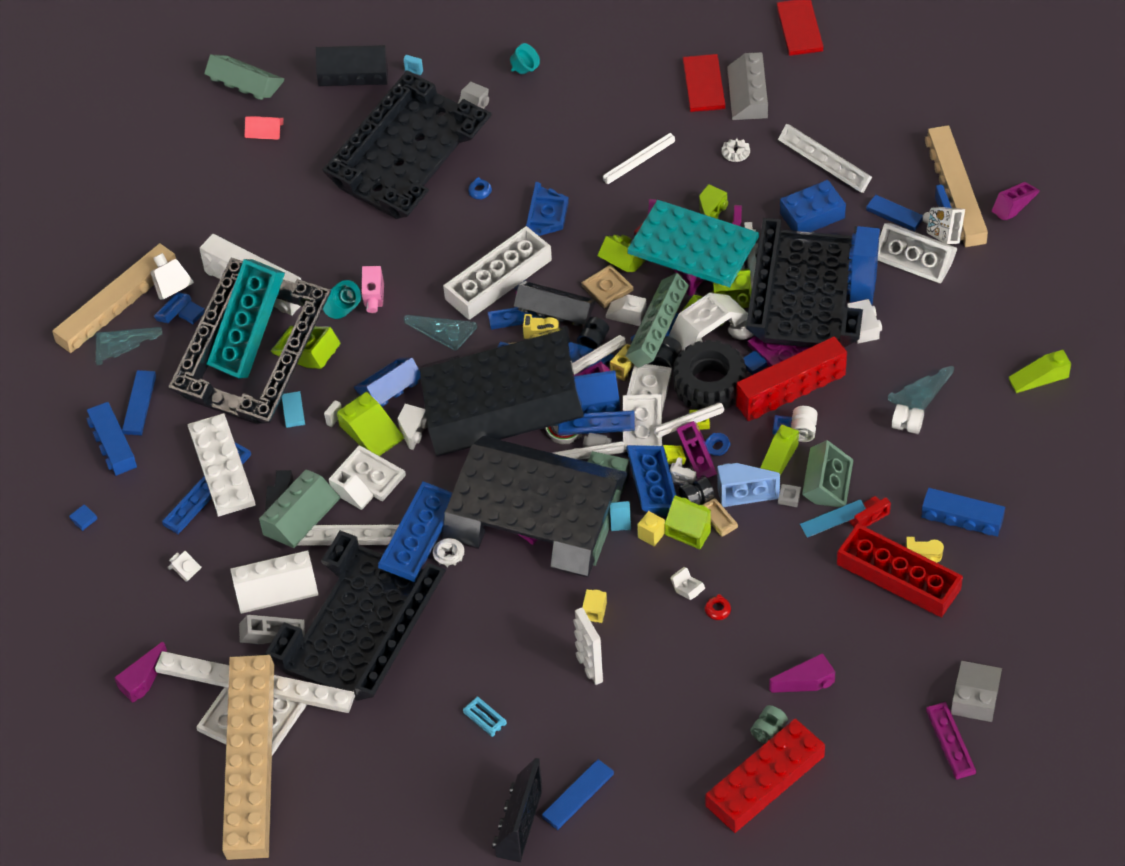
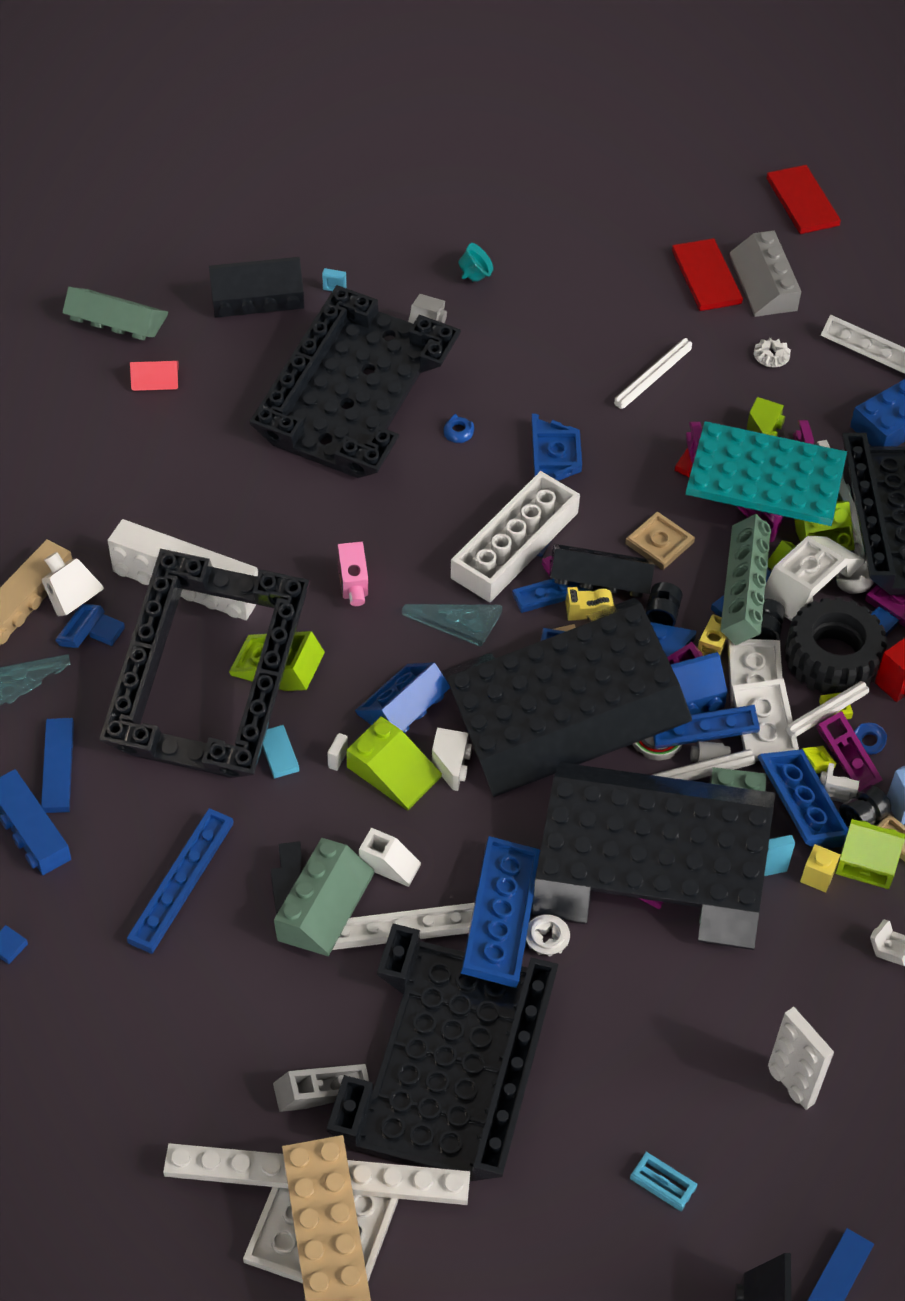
camera: 15 degrees left, 0 degrees up
(139, 677) = (138, 1188): magenta slope -> none
(184, 565) = (171, 1001): white bracket -> none
(221, 465) = (197, 844): white plate -> none
(245, 318) = (195, 631): teal brick -> none
(274, 582) = (310, 1011): white slope -> none
(342, 299) = (322, 590): teal piece -> none
(374, 472) = (417, 829): white plate -> none
(595, 605) = (774, 991): light yellow brick -> none
(598, 354) = (684, 627): white axle -> none
(616, 252) = (669, 495): lime slope -> none
(627, 309) = (697, 568): white slope -> none

